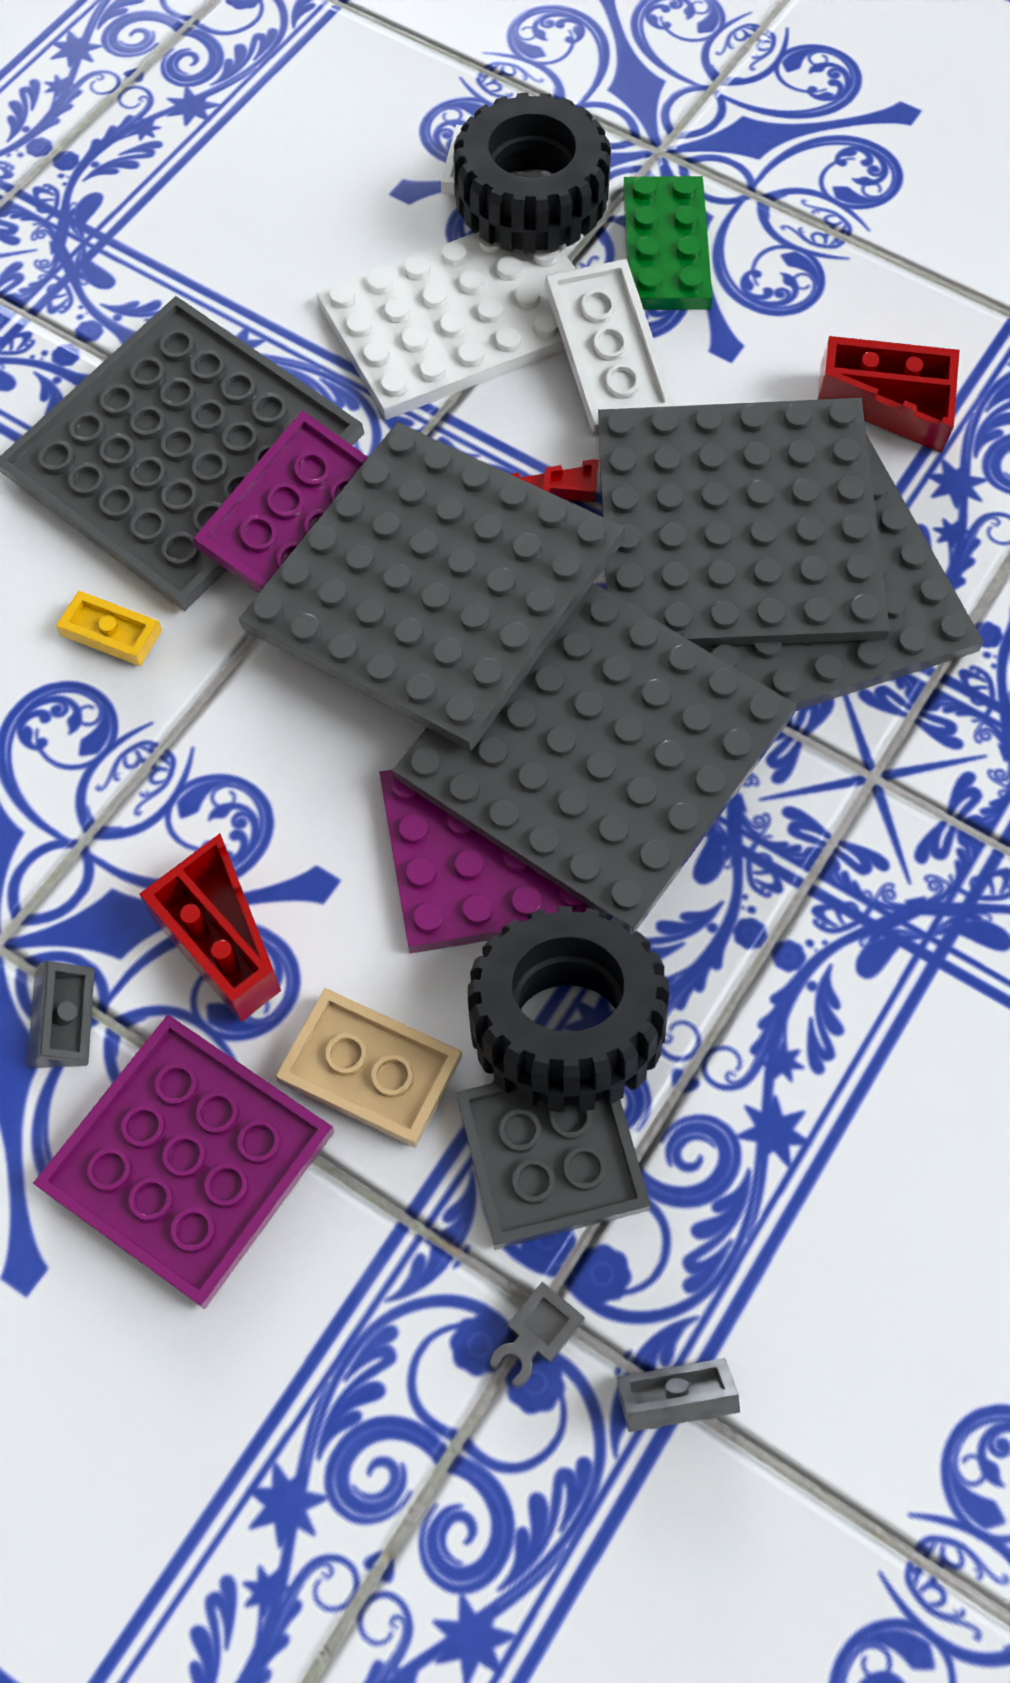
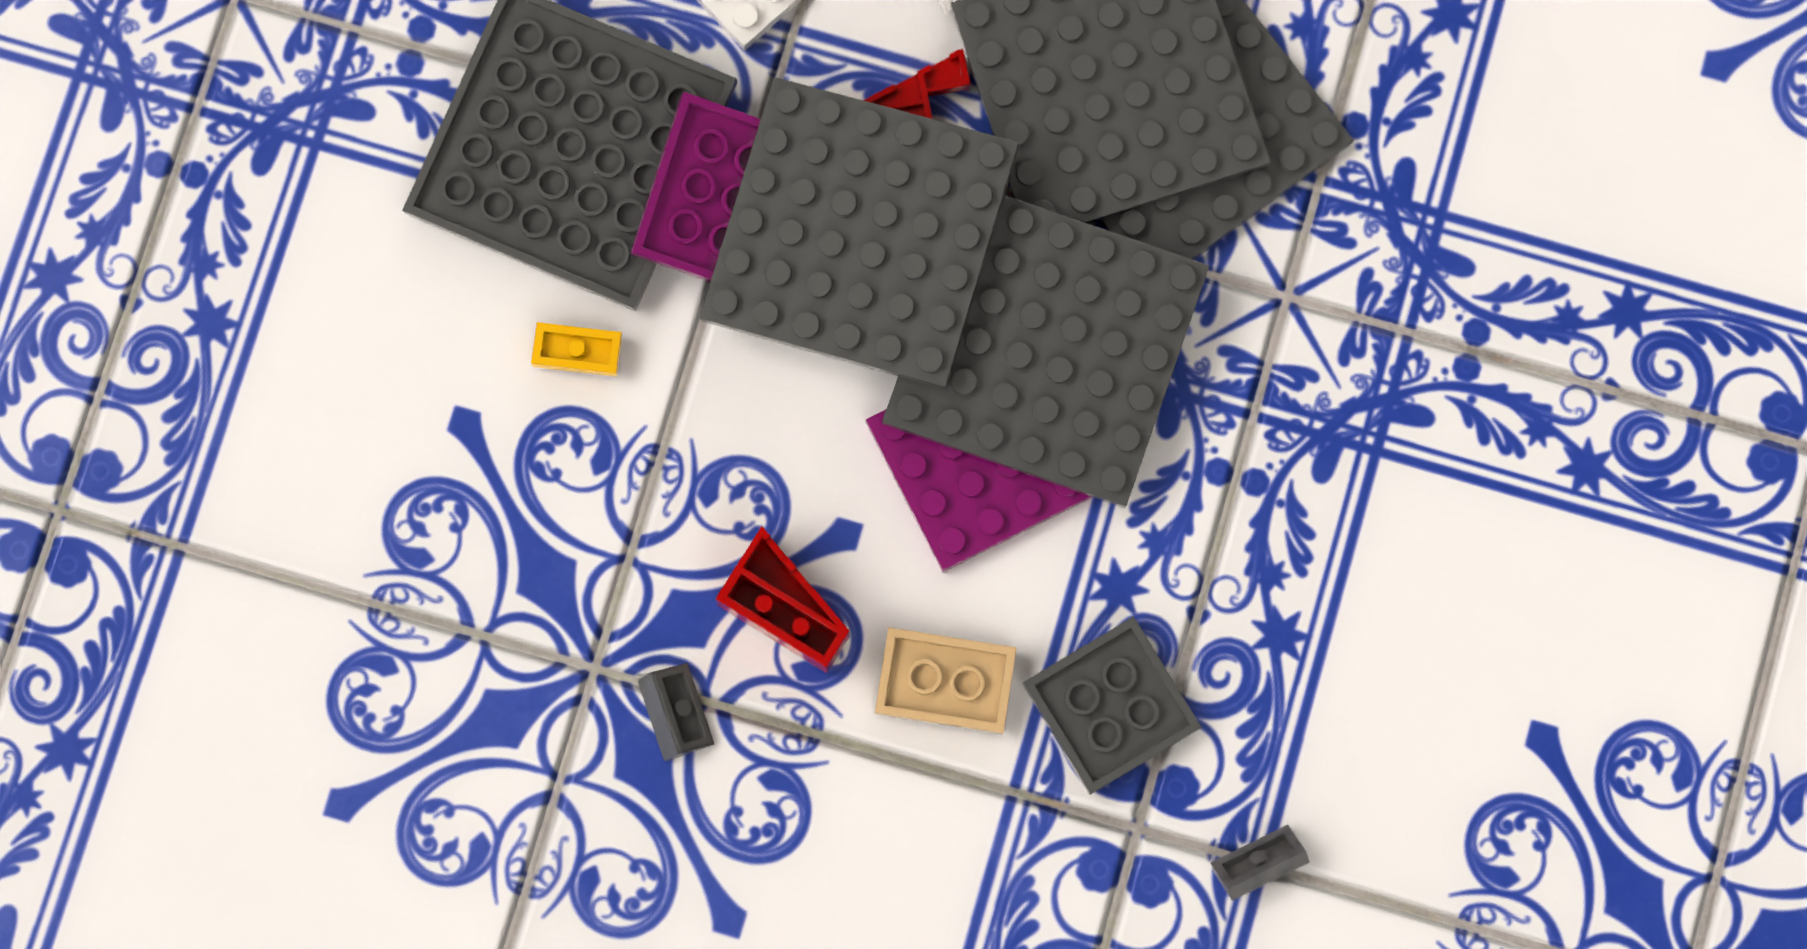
camera: 20 degrees left, 15 degrees up
(185, 1160) = (825, 797): magenta plate -> none
(542, 1328) = (1144, 844): flat silver plate -> none
(560, 1064) = (1083, 539): black tyre -> none

